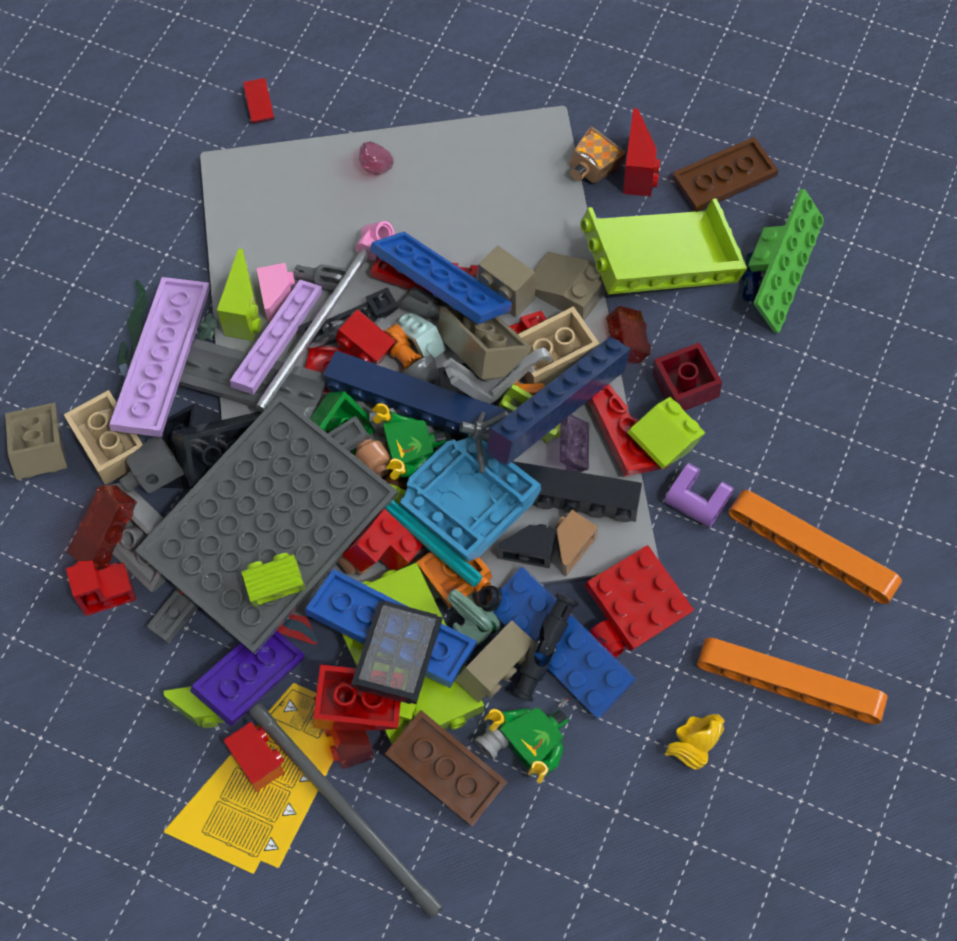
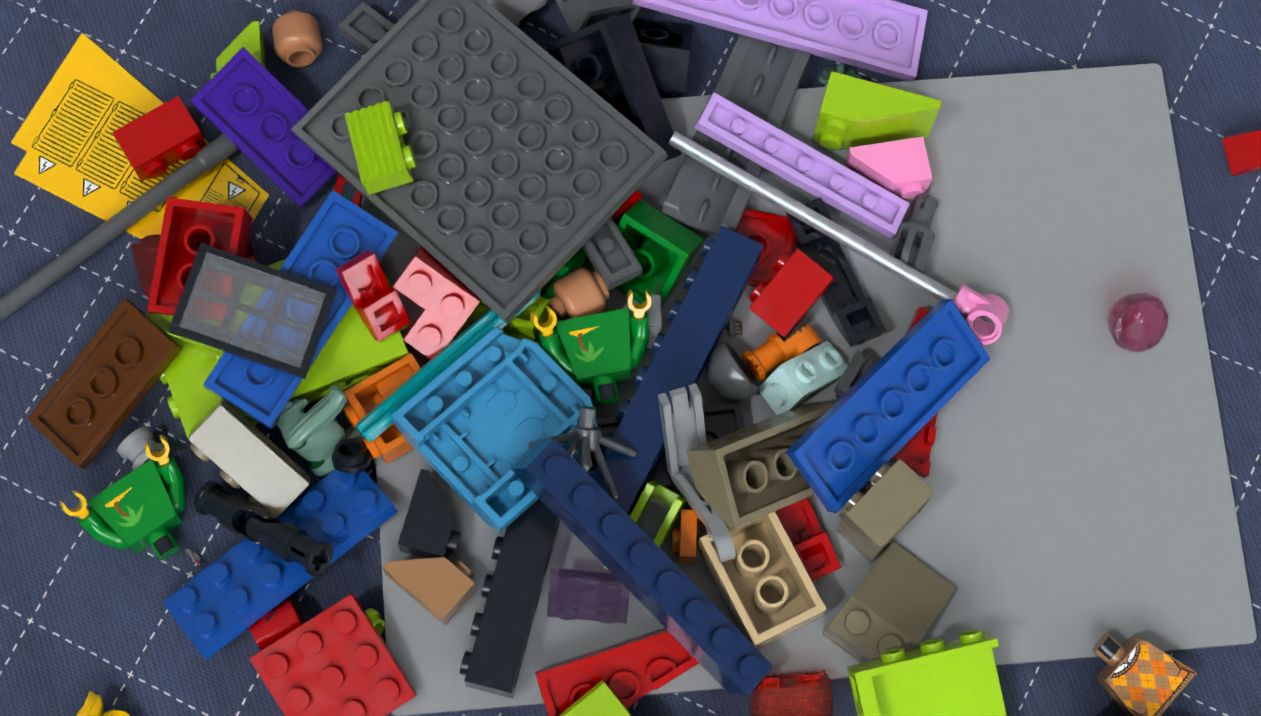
camera: 85 degrees right, 10 degrees up
(174, 669) = (297, 38): none -> nougat head
(382, 581) = (372, 297): none -> red slope

